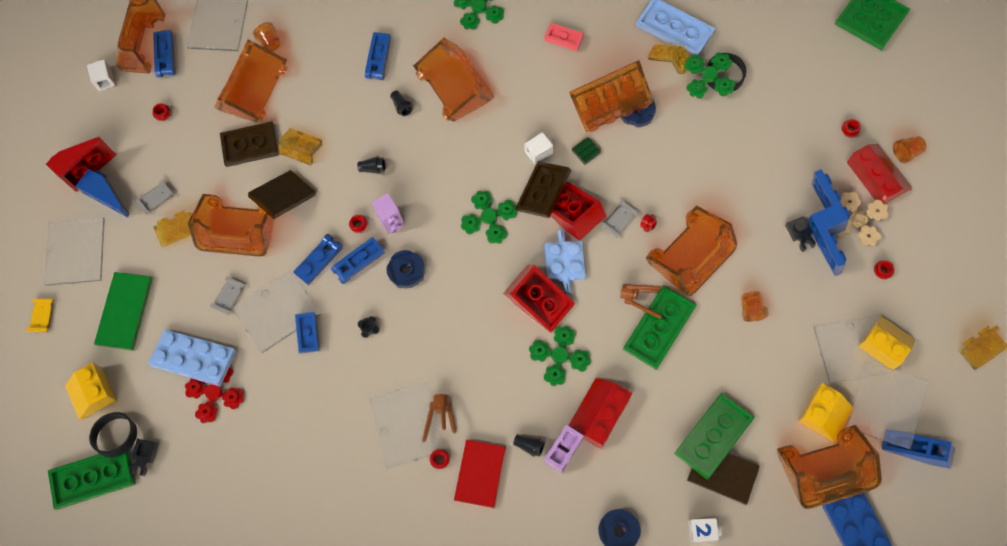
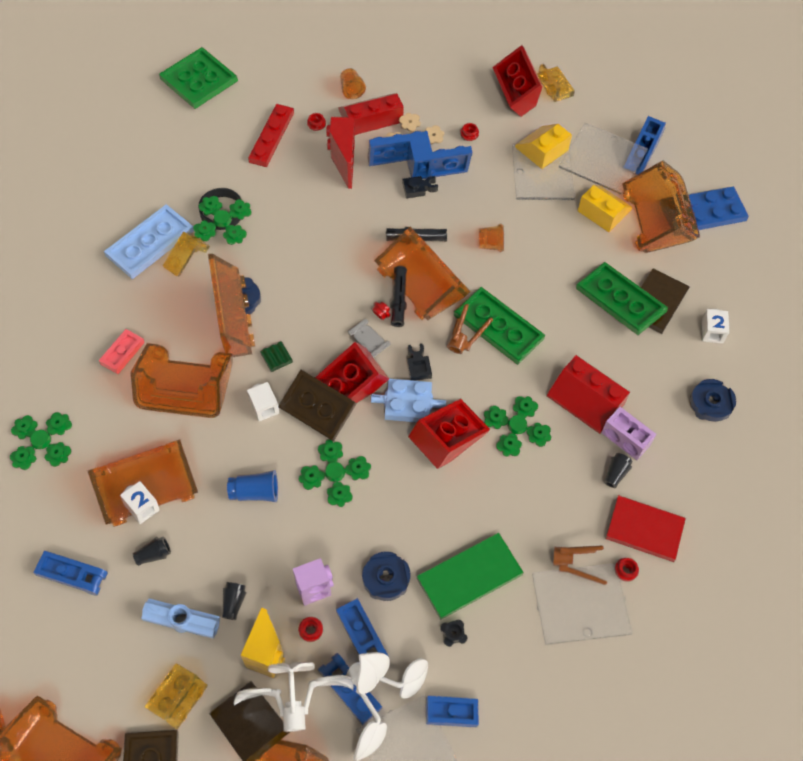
camera: 90 degrees left, 10 degrees down
(282, 214) = (294, 712): none -> white plant
(316, 262) = (365, 677): none -> white plant
(336, 191) = (262, 646): none -> yellow slope
(353, 125) = (166, 614): none -> light blue piece
(417, 333) = (469, 576): none -> green tile
(435, 83) = (139, 502): none -> white brick
(462, 160) = (254, 487): none -> blue plant
(544, 83) = (180, 386): none -> clear orange windscreen
(600, 264) = (418, 365): none -> black plate
(665, 235) = (398, 304): none -> black pin
(742, 244) = (426, 234): none -> black pin
(823, 153) = (342, 146): none -> red slope
(824, 94) = (271, 135): none -> red plate
(960, 302) = (519, 81): none -> red slope

